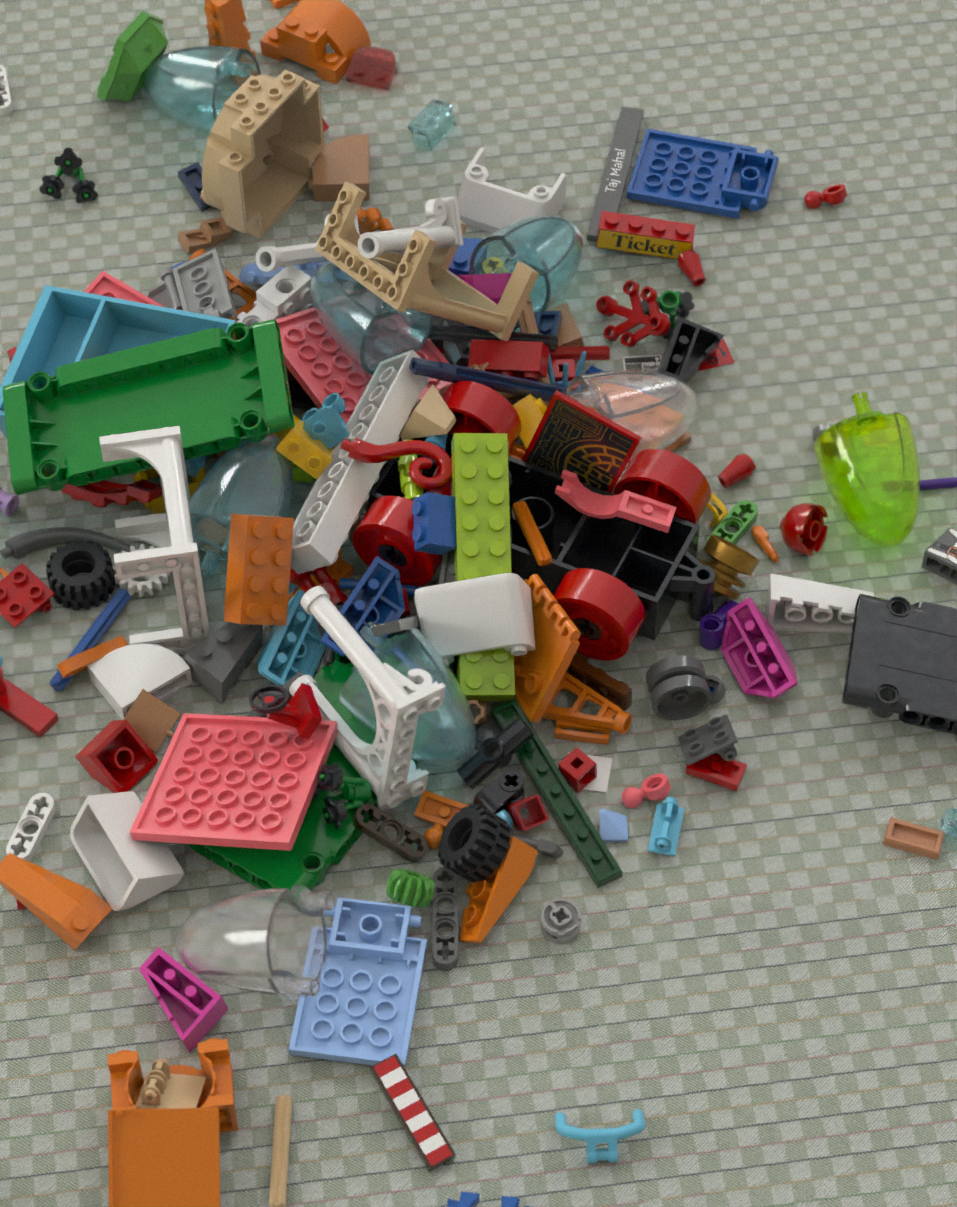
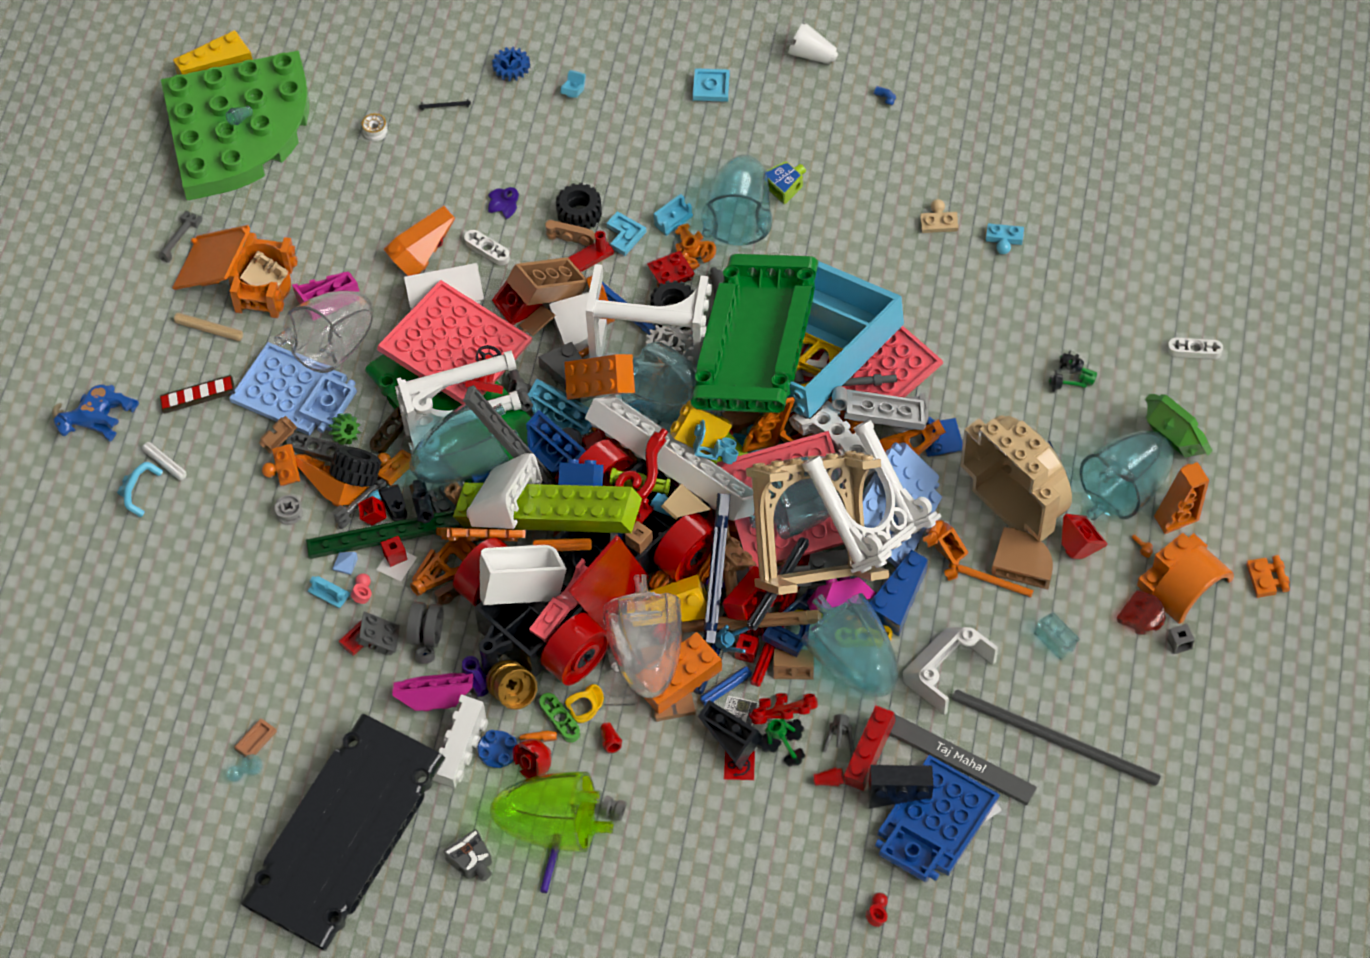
camera: 110 degrees right, 5 degrees up
(93, 706) = (546, 280): none -> medium nougat brick
(379, 182) = (995, 580): none -> orange bar
(395, 32) = (1180, 635): none -> flat silver piece
(447, 972) = (284, 428): none -> medium nougat hinge
(496, 944) = (284, 465): none -> orange plate
(539, 1118) = (164, 461): none -> white axle
(554, 104) = (1057, 737): none -> dark grey axle
(604, 543) = (520, 574): none -> white windscreen
(624, 271) = (840, 727): none -> dark grey plant
(684, 193) = (899, 784): none -> black wedge
(804, 568) = (496, 748): none -> blue dish

